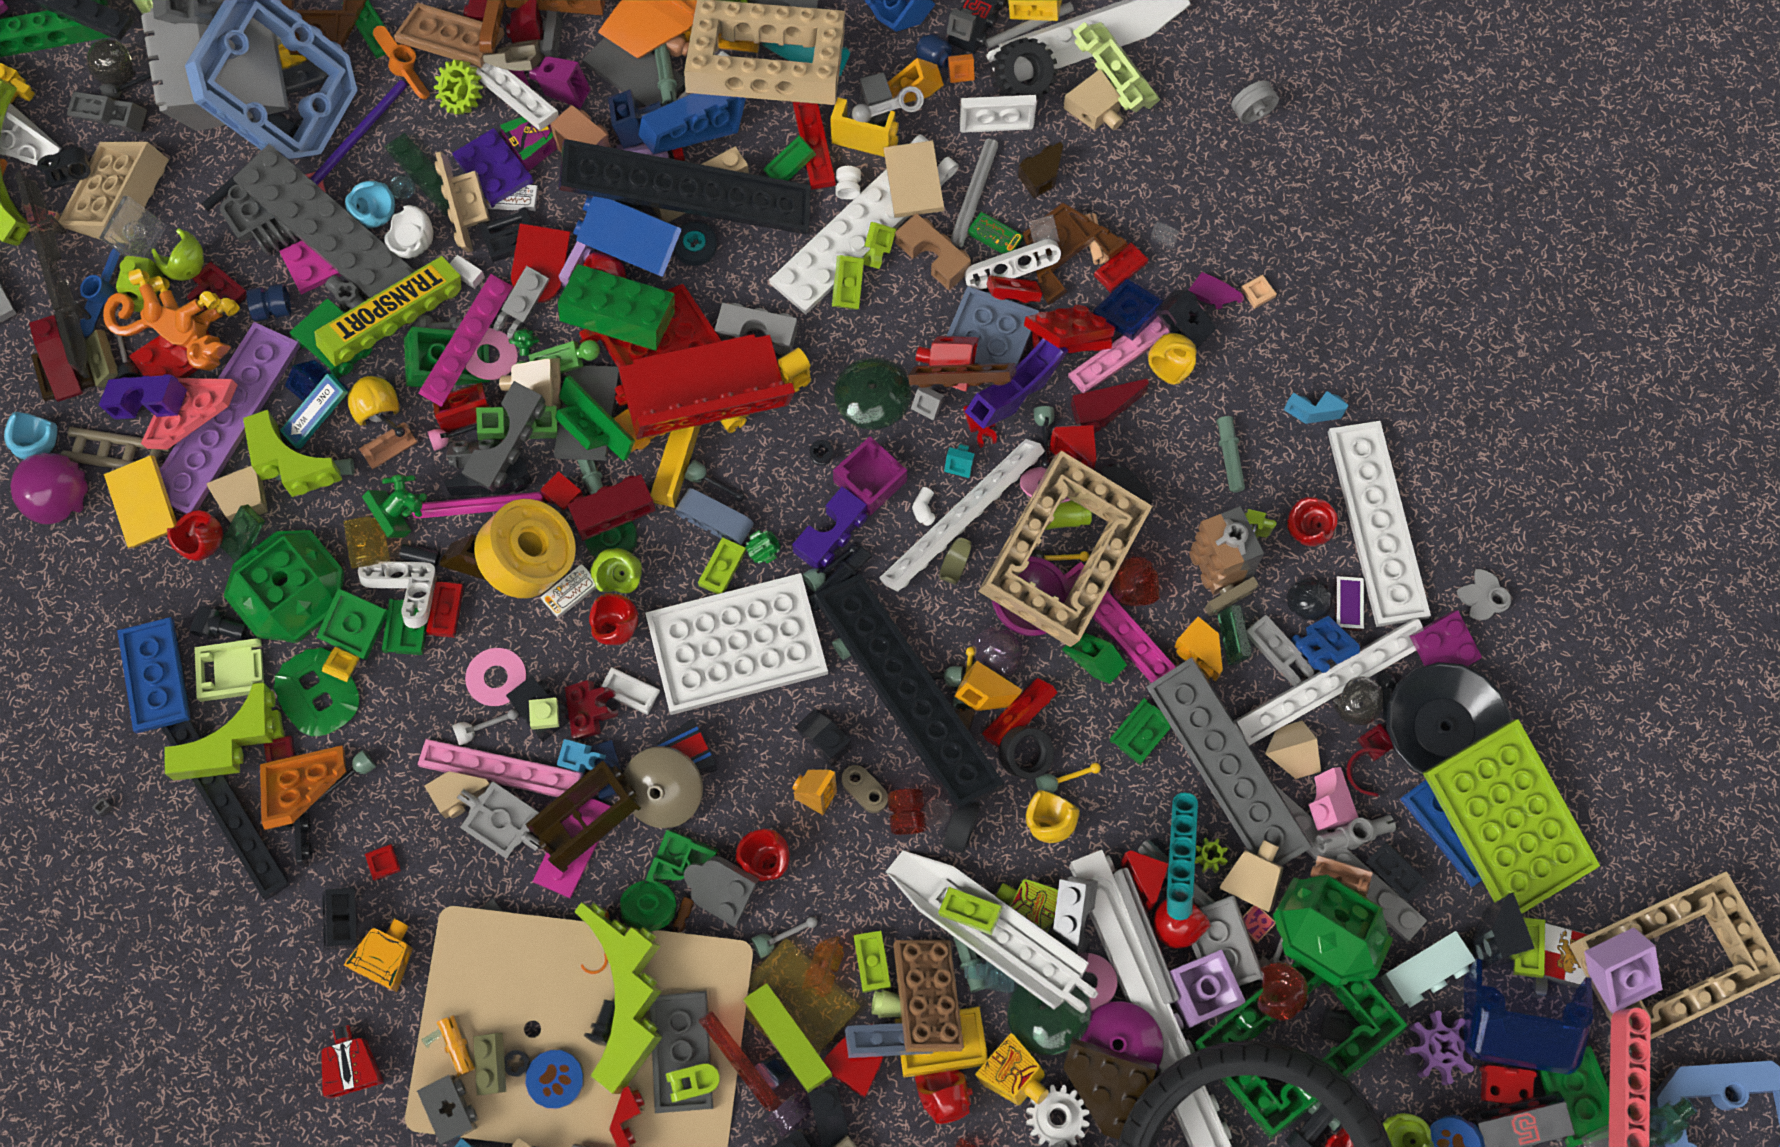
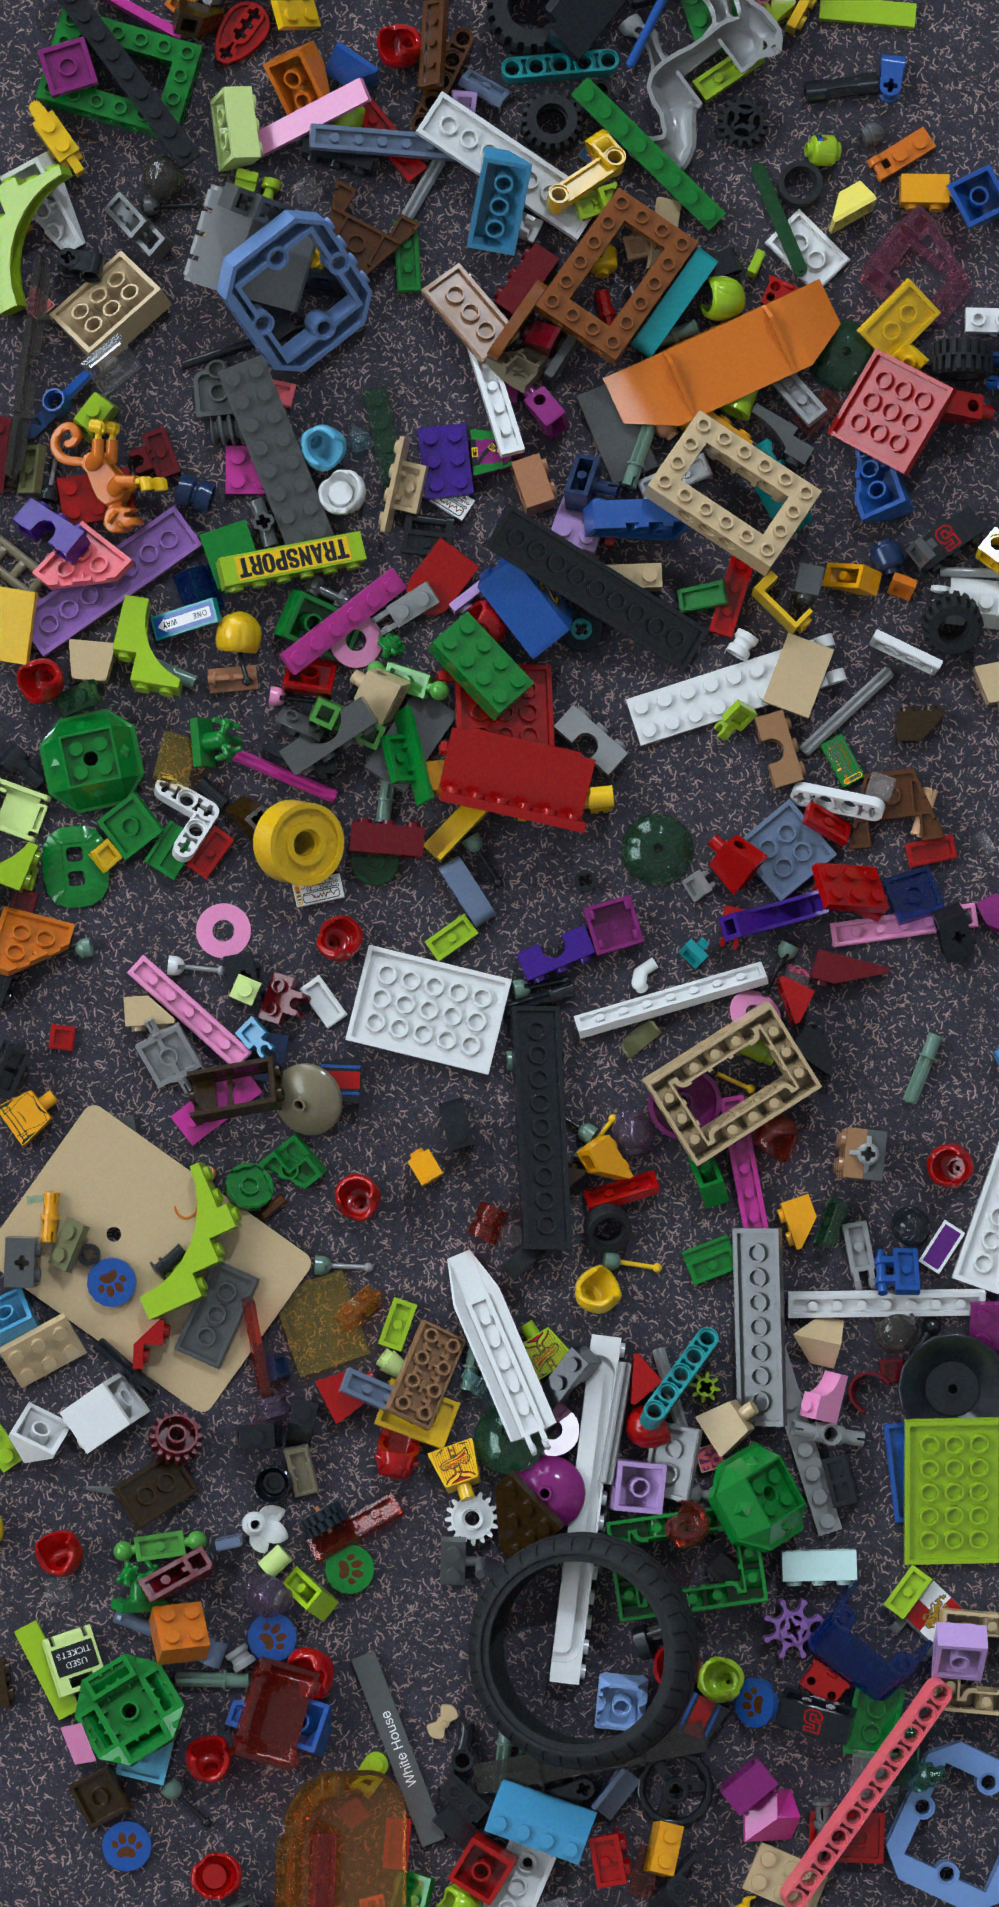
camera: 25 degrees right, 15 degrees up
(185, 260) = (140, 417): lime piece -> none
(358, 132) = (344, 365): dark purple piece -> none
(399, 68) = (414, 297): orange piece -> none
(457, 88) = (453, 370): lime gear -> none
(469, 273) = (374, 551): white piece -> none
(560, 491) = (353, 802): red panel -> none
(607, 571) = (354, 897): lime piece -> none
(703, 1079) = (222, 1345): lime plate -> none
(720, 888) = (311, 1204): dark grey plate -> none
(763, 546) = (493, 940): green gear -> none
(787, 1038) = (301, 1348): lime tile -> none
(847, 282) = (689, 740): lime plate -> none
(863, 113) = (784, 597): light grey piece -> none
(864, 788) = (466, 1184): dark tan plate -> none
(968, 373) = (734, 884): reddish brown plate -> none
(970, 910) = (491, 1331): lime plate -> none
(1172, 358) = (923, 960): yellow piece -> none
(1231, 595) = (847, 1188): dark tan plate -> none
(1259, 524) = (901, 1140): lime piece -> none
(1349, 875) = (795, 1460): nougat hinge -> none
(1500, 934) = (883, 1573): black slope -> none

